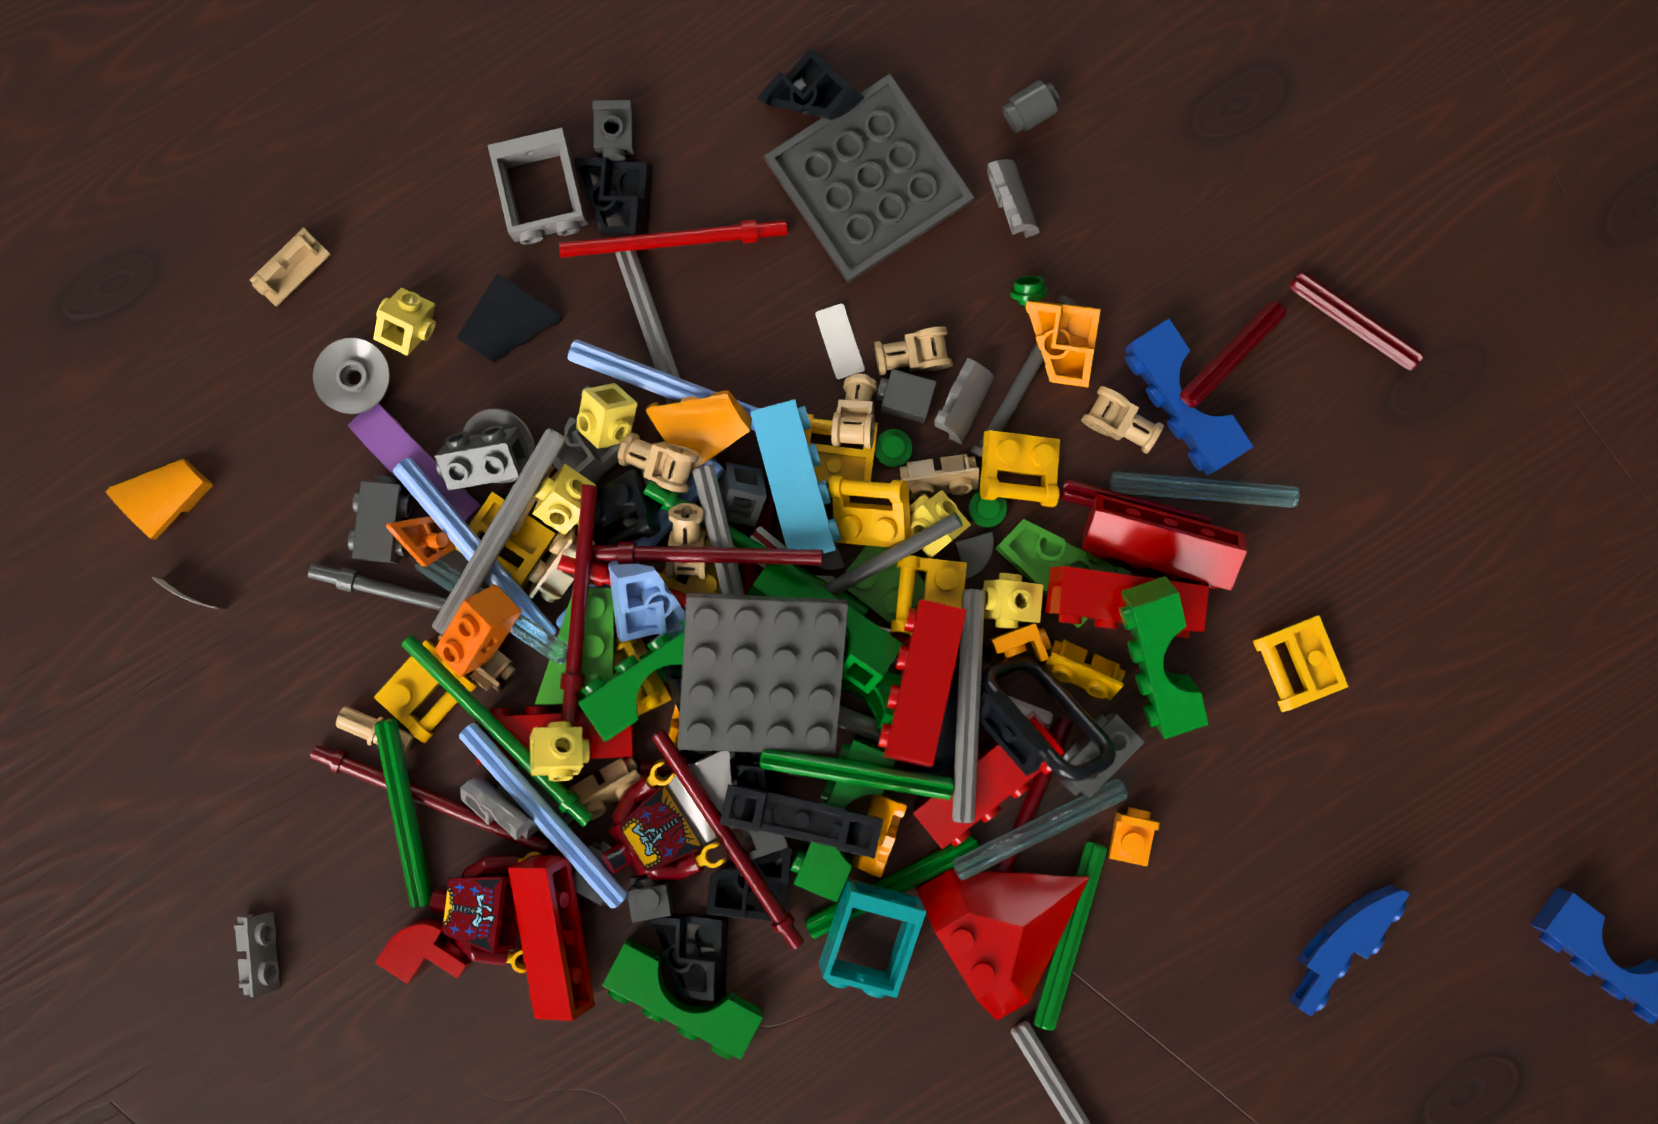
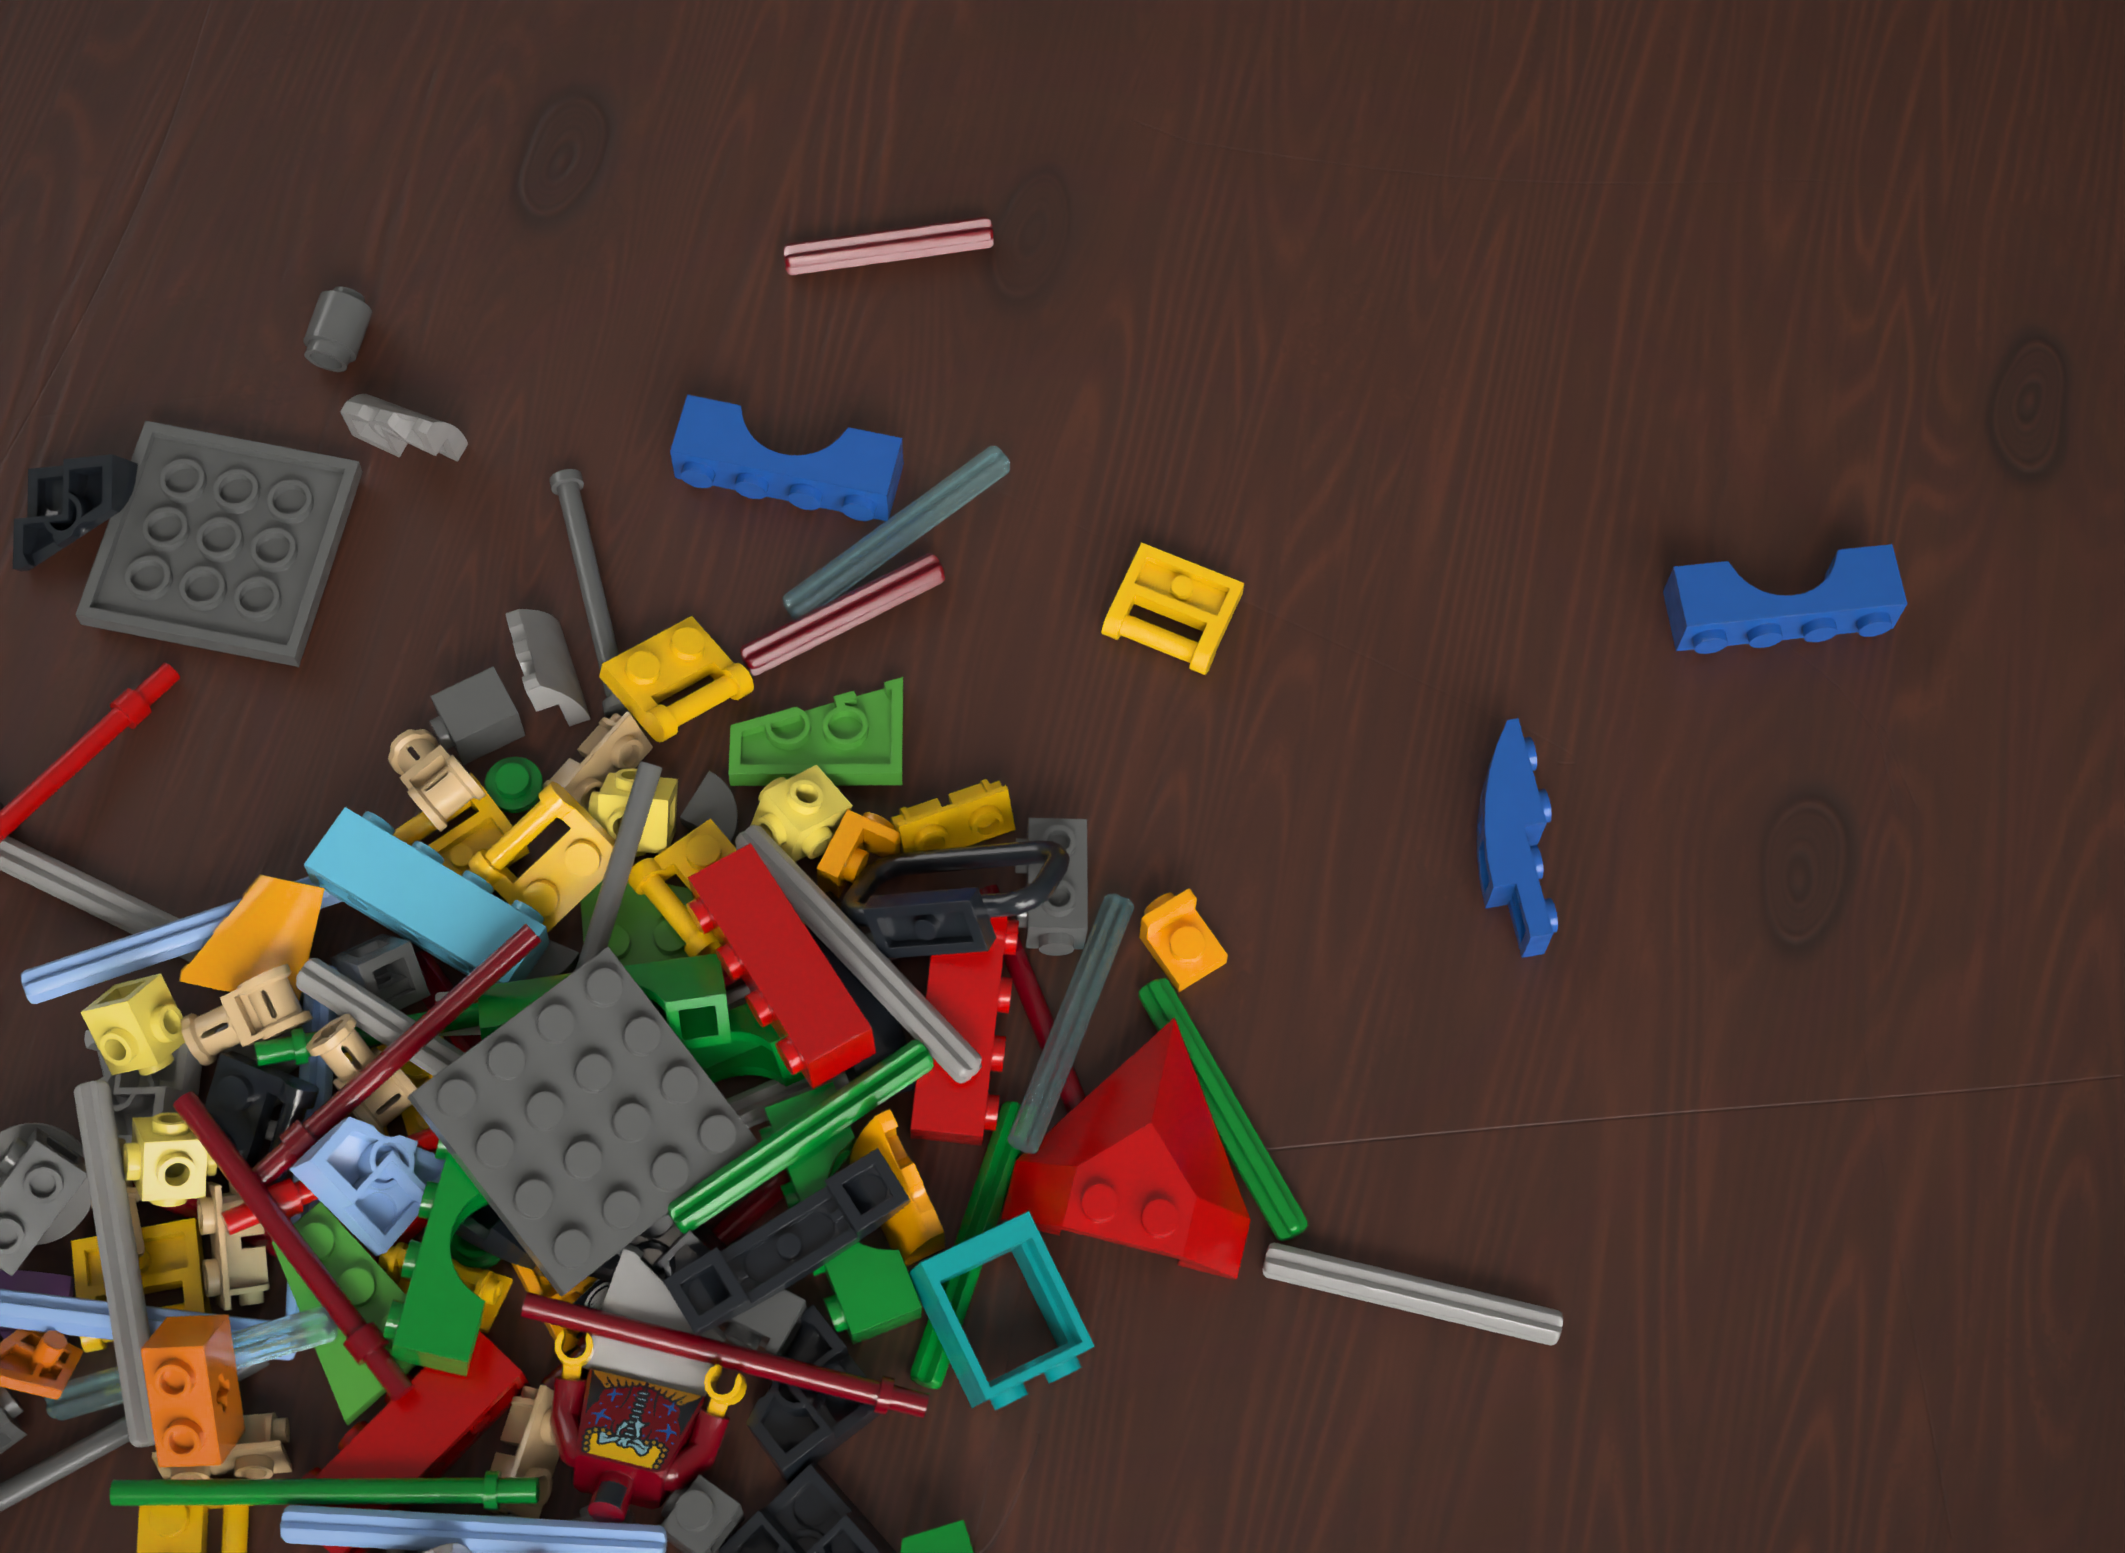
camera: 45 degrees left, 20 degrees down
(546, 758) = (420, 1434): light yellow brick -> none
(839, 341) = (343, 733): white sticker -> none
(915, 352) = (442, 660): tan connector -> none
(987, 512) = (683, 754): green plate -> none
(1028, 288) = (510, 501): green plate -> none
(1066, 339) = (598, 511): light orange slope -> none
(1098, 596) = (922, 700): red brick -> none
(1121, 420) = (737, 540): tan connector -> none
(1155, 618) = (962, 676): green arch -> none
(1164, 542) = (904, 614): red brick -> none
(1232, 354) = (790, 375): dark red axle -> none

